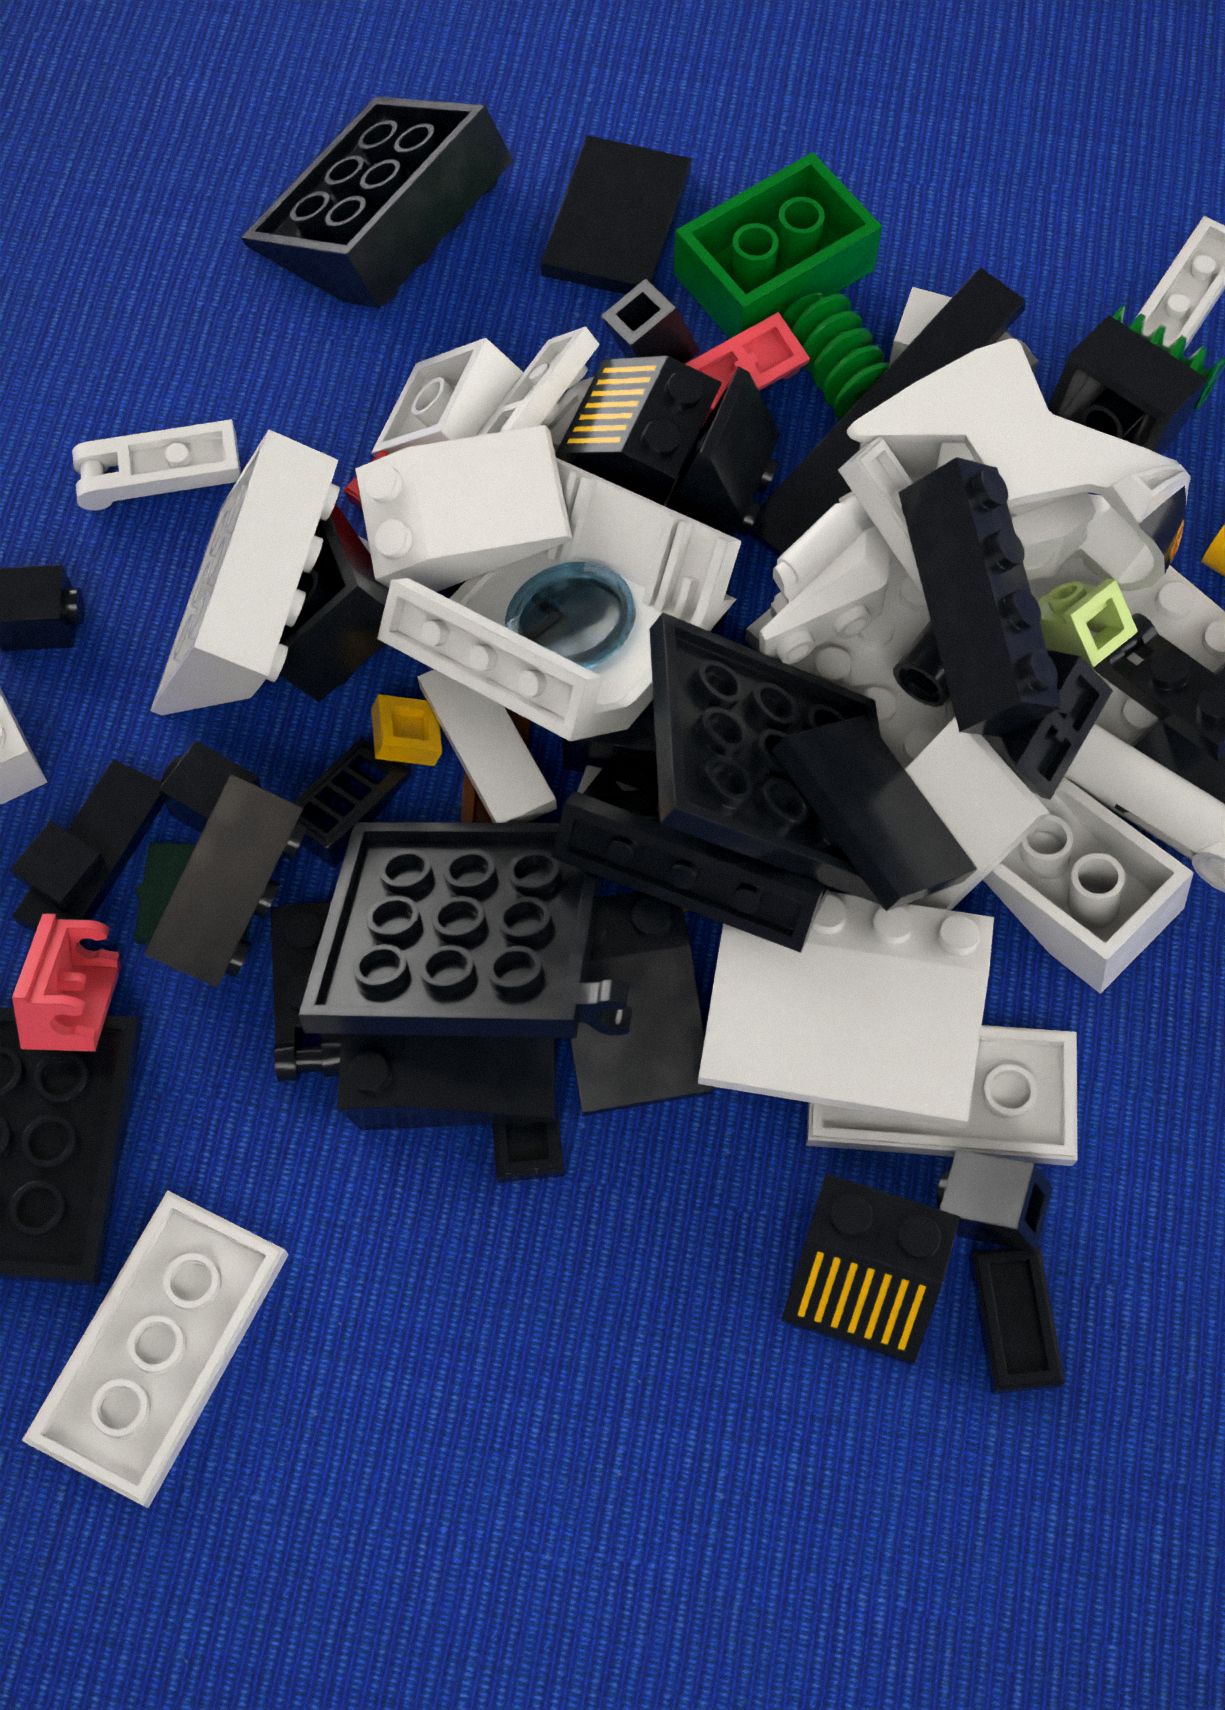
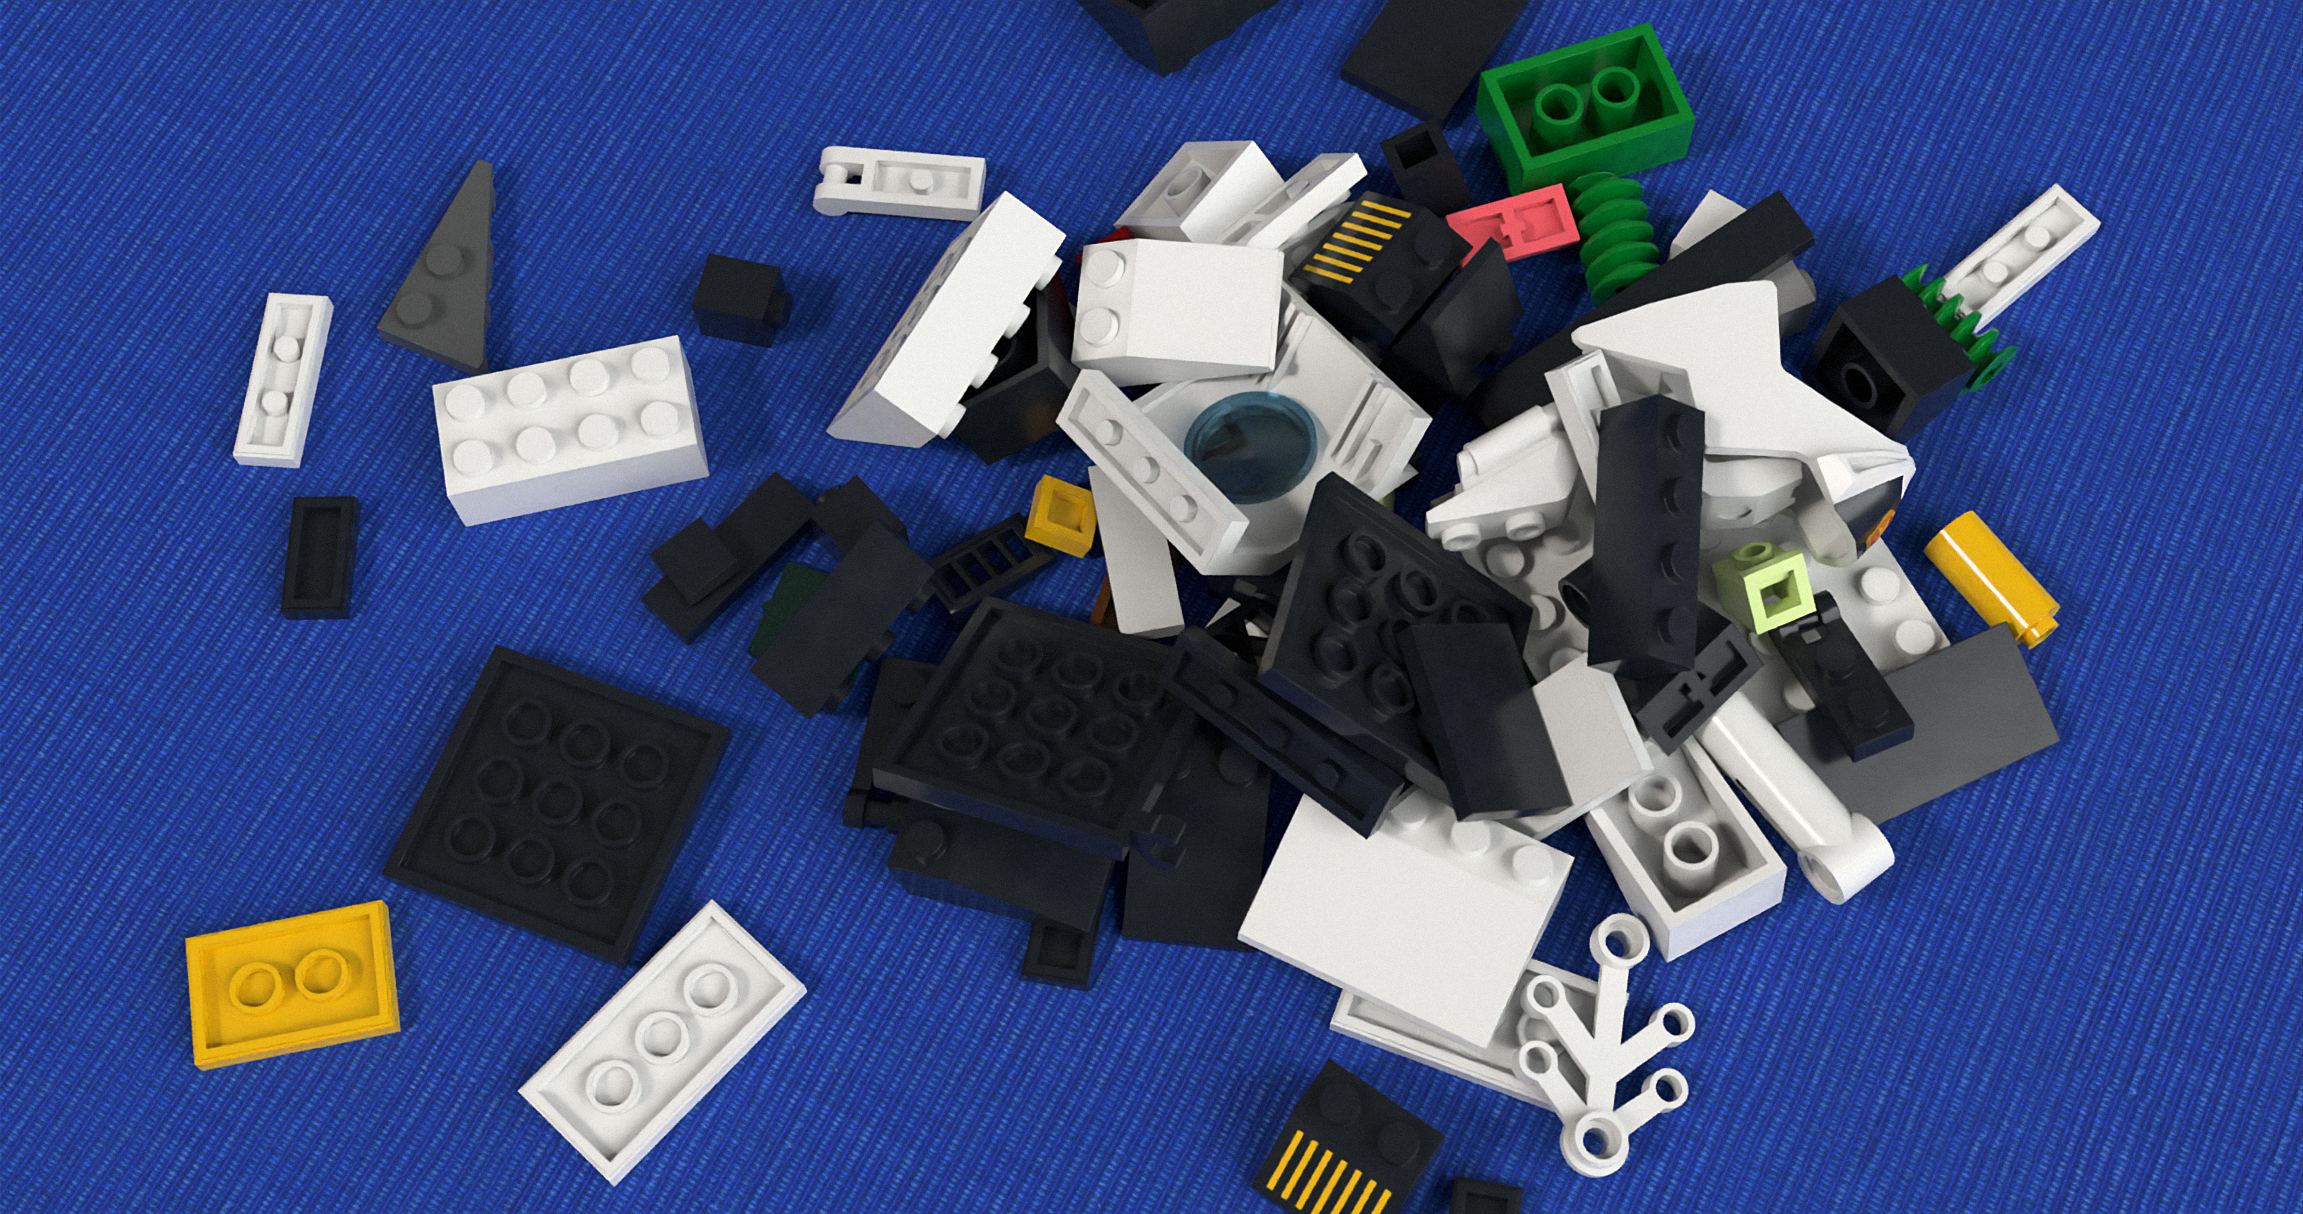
camera: 20 degrees right, 0 degrees up
(64, 986) = (670, 680): coral hinge -> none
(997, 1199) = (1490, 1132): brick -> none
(1071, 1095) = (1601, 1055): none -> white plant

